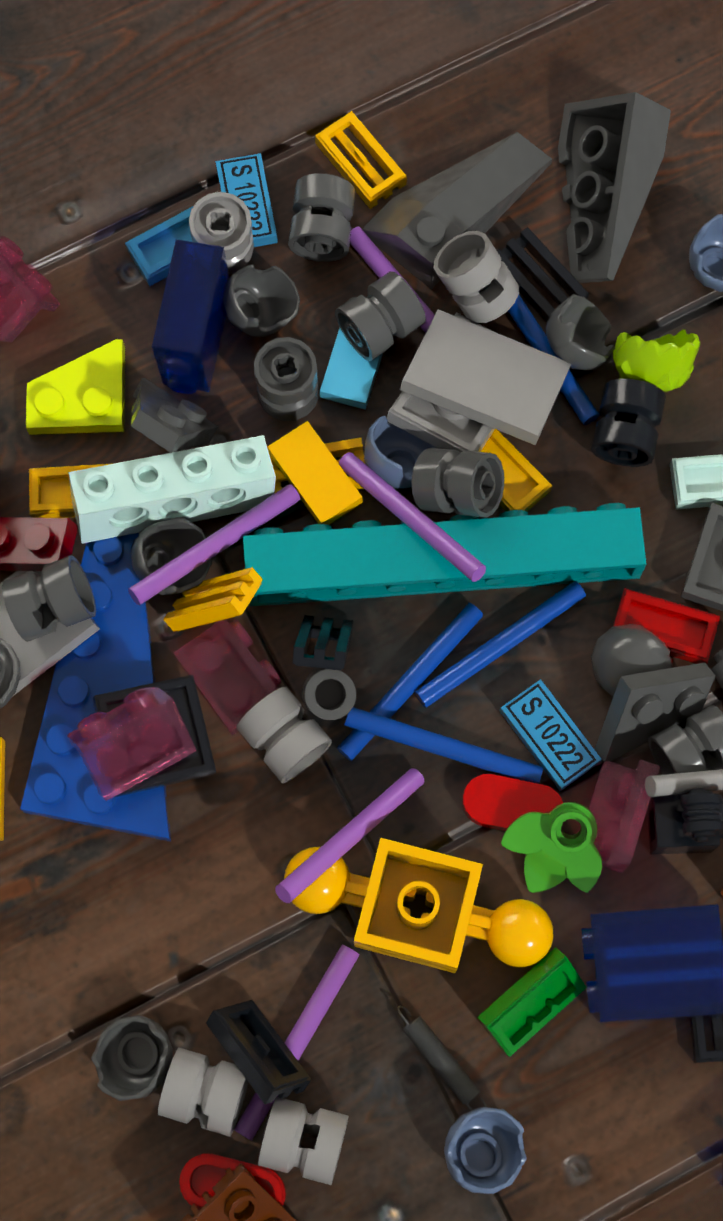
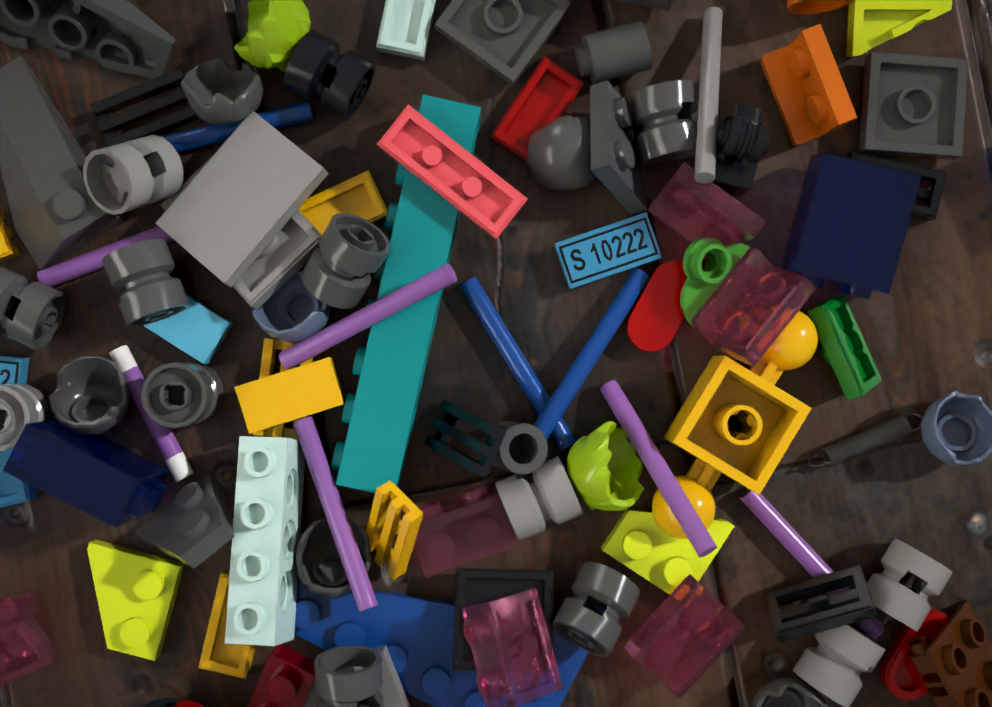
camera: 75 degrees left, 15 degrees up
(186, 819) = (599, 603): none -> dark grey wheel
(187, 920) = (684, 636): none -> clear pink bracket
(245, 371) = (162, 435): none -> bar
(251, 887) = (656, 555): none -> neon yellow wing
(332, 789) = (605, 469): none -> lime hair
(500, 644) = (517, 297): blue bar -> none
(541, 880) = (751, 307): none -> clear pink bracket
(574, 554) = (452, 172): none -> coral tile

